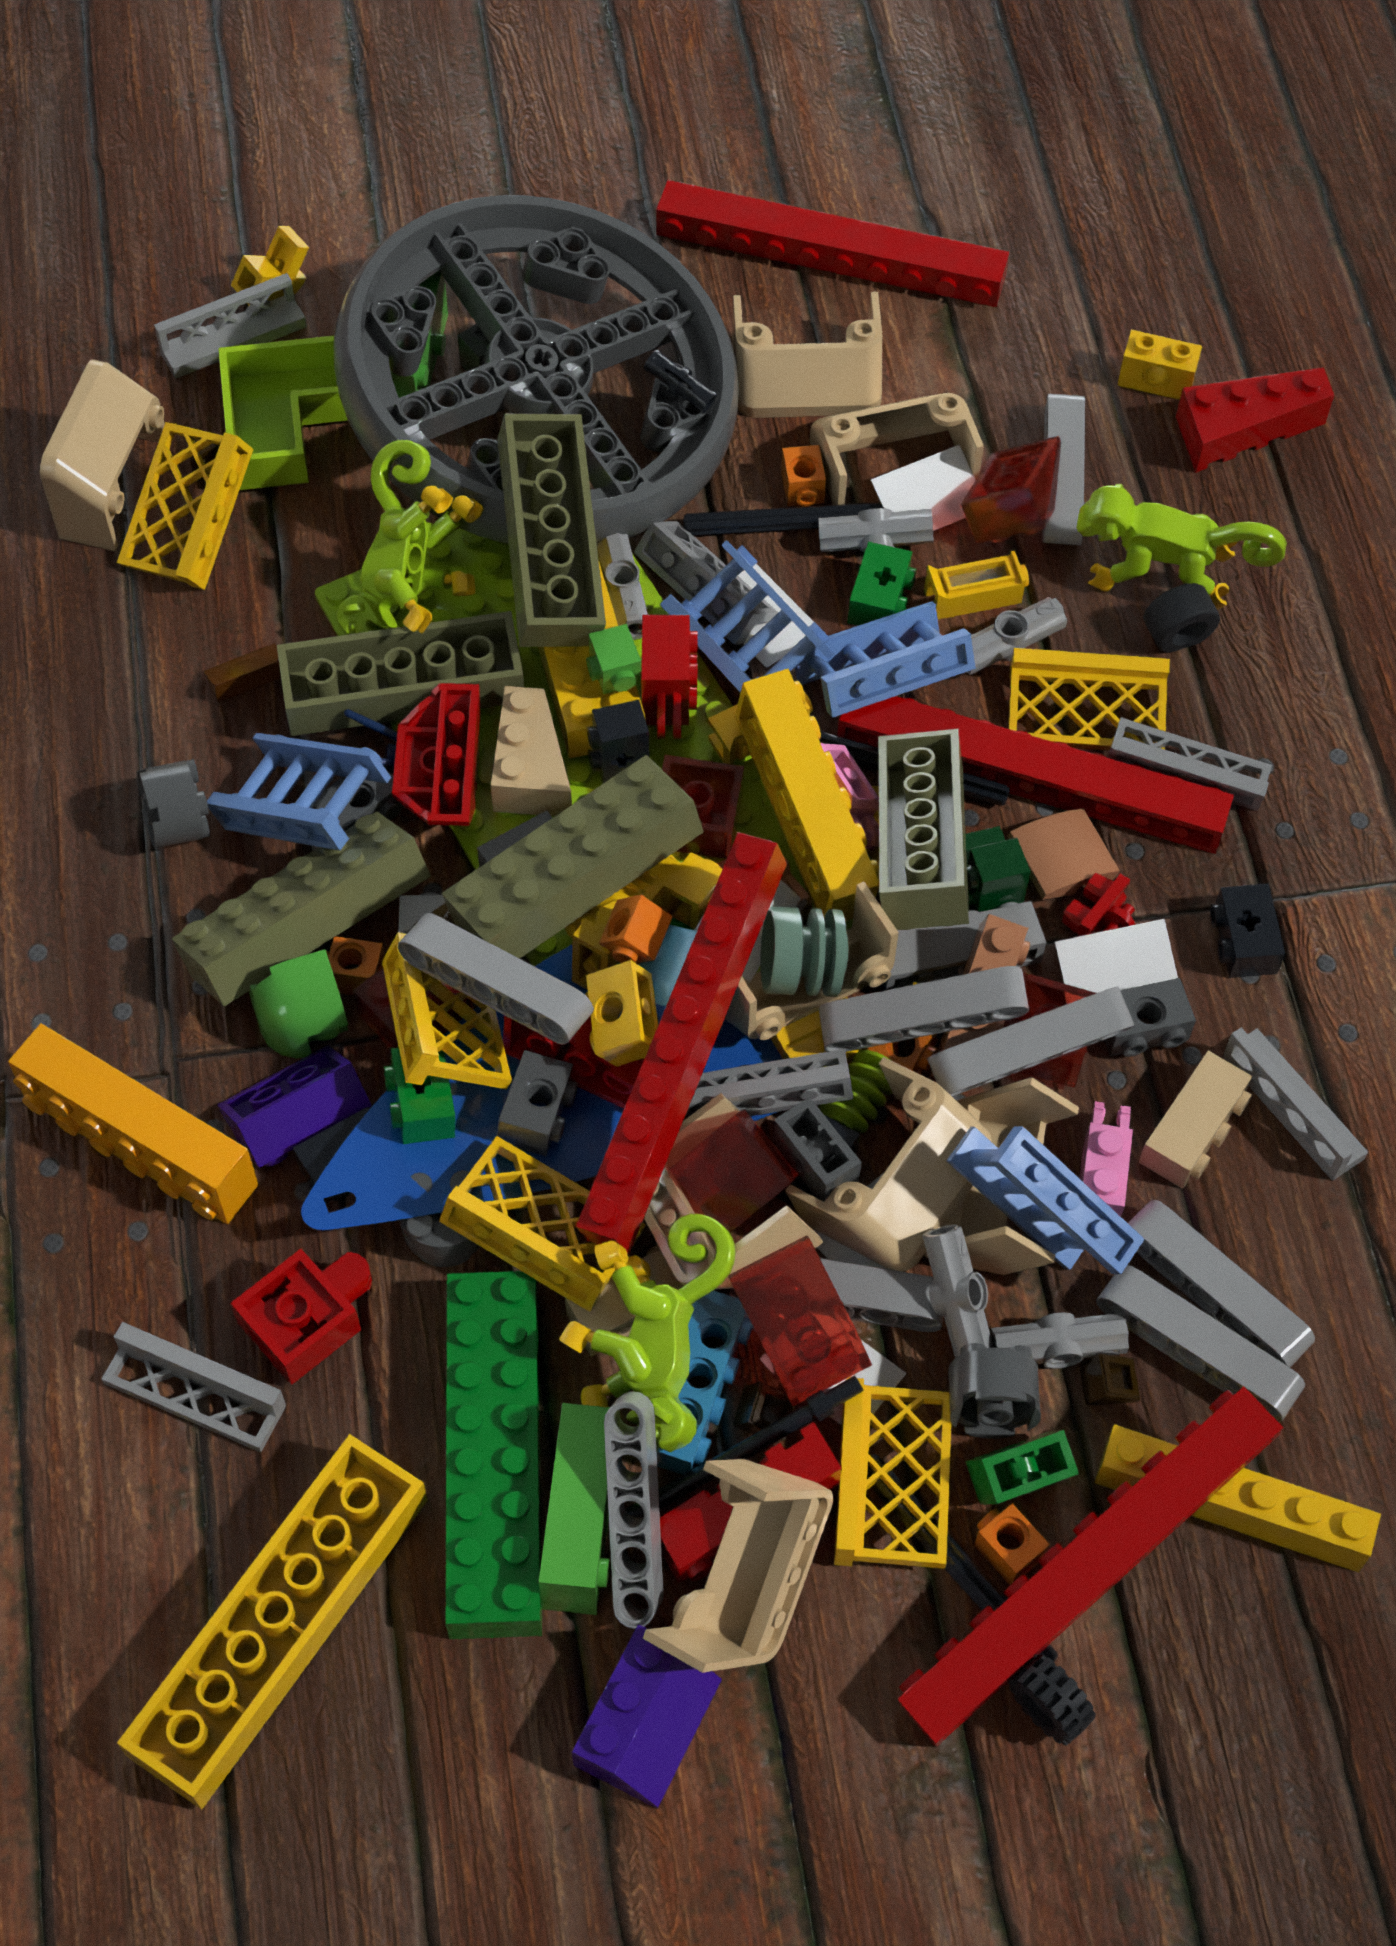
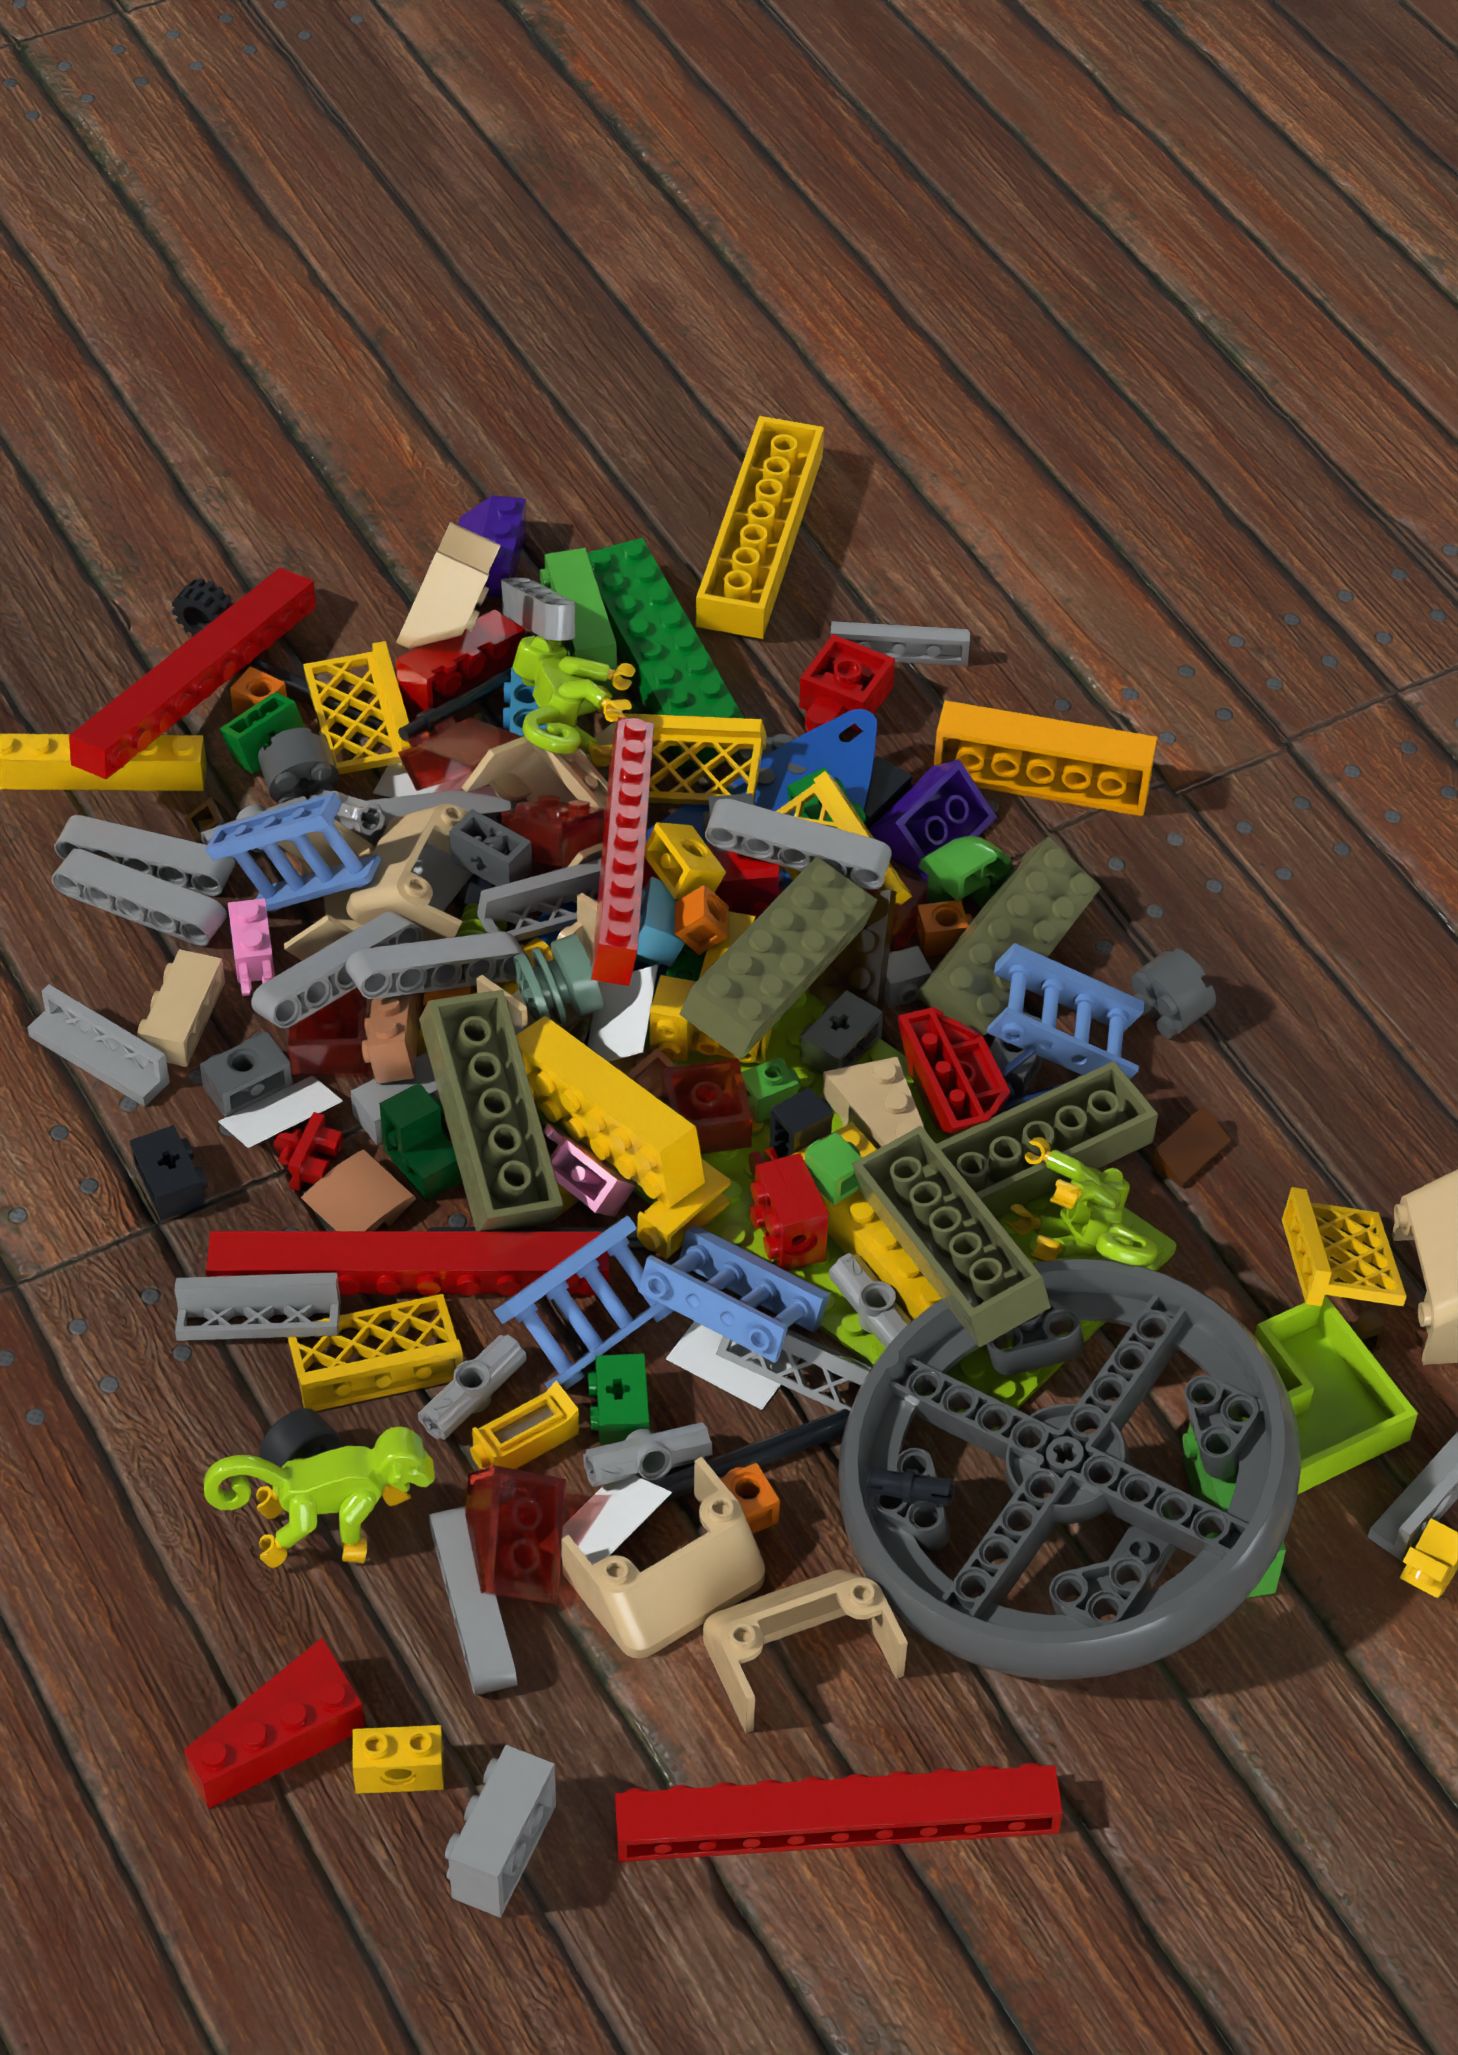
camera: 160 degrees right, 10 degrees down
(1095, 281) = (501, 1830): none -> light grey brick

